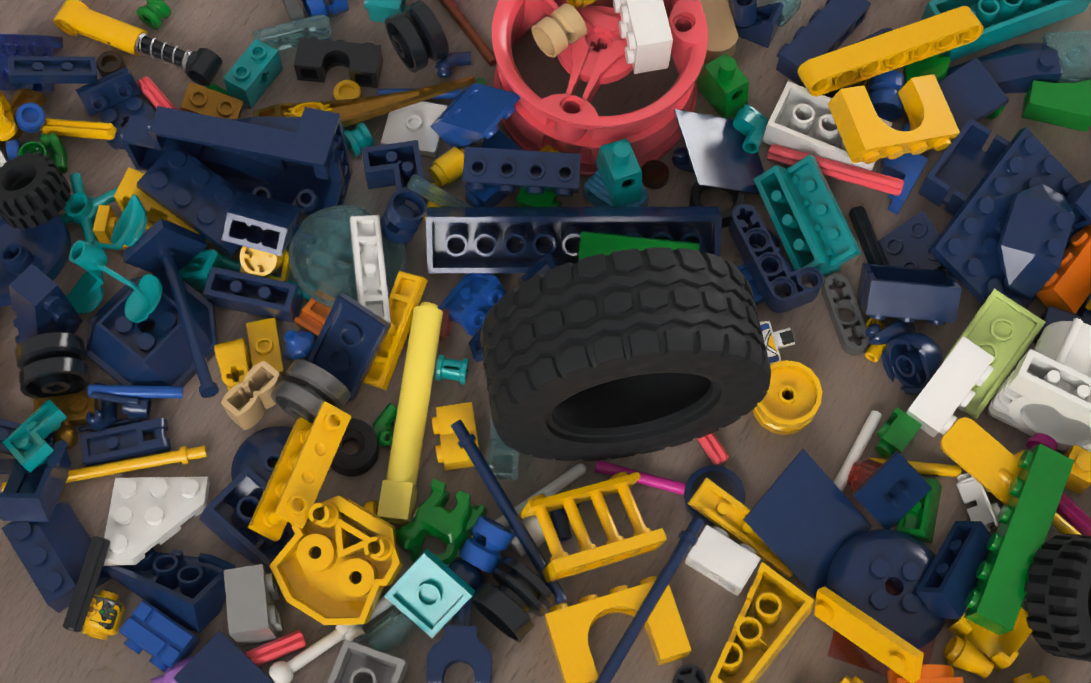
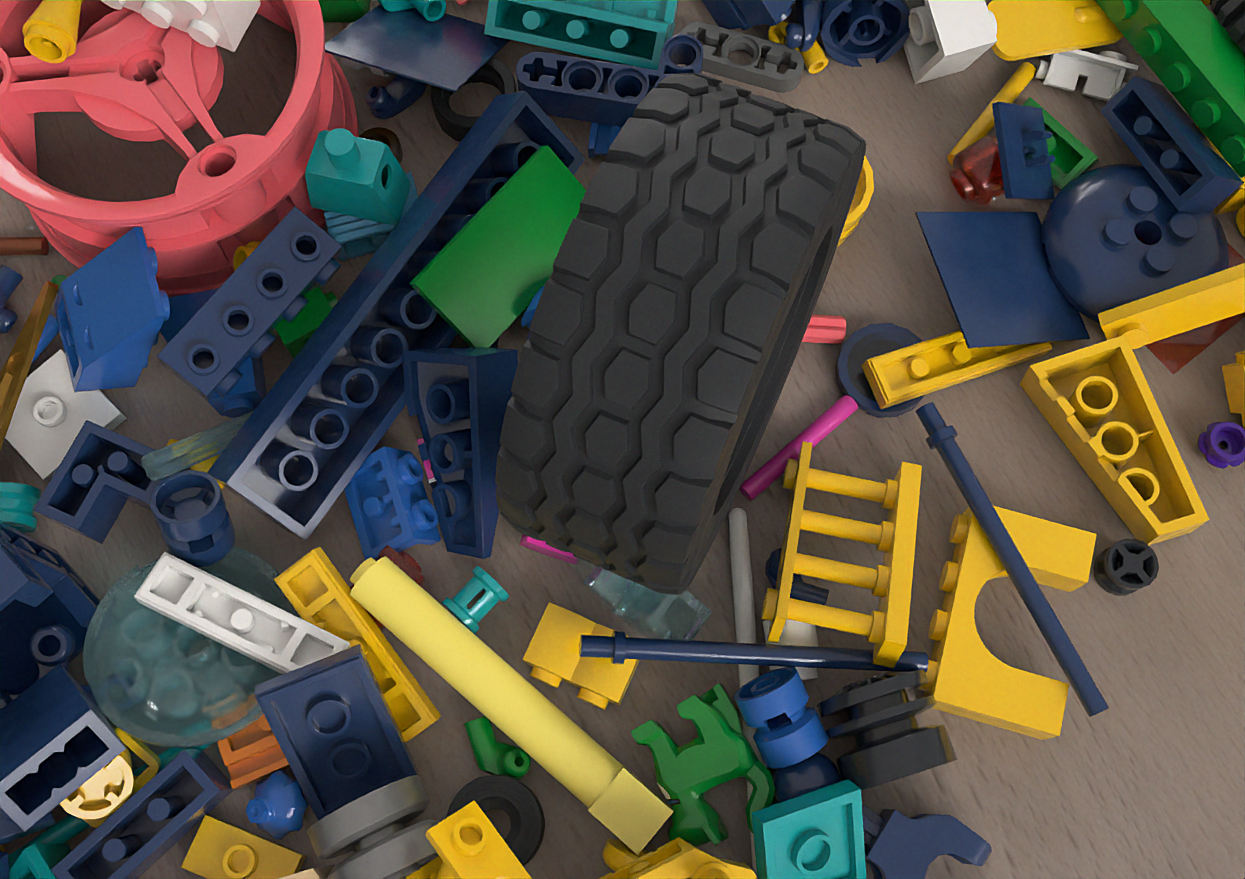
camera: 55 degrees left, 5 degrees up
(448, 167) = (159, 405): yellow brick -> none
(561, 29) = (86, 95): tan wheel -> none
(723, 559) = (992, 410): white brick -> none
(857, 448) = (927, 159): white bar -> none
(896, 433) = (943, 102): green brick -> none

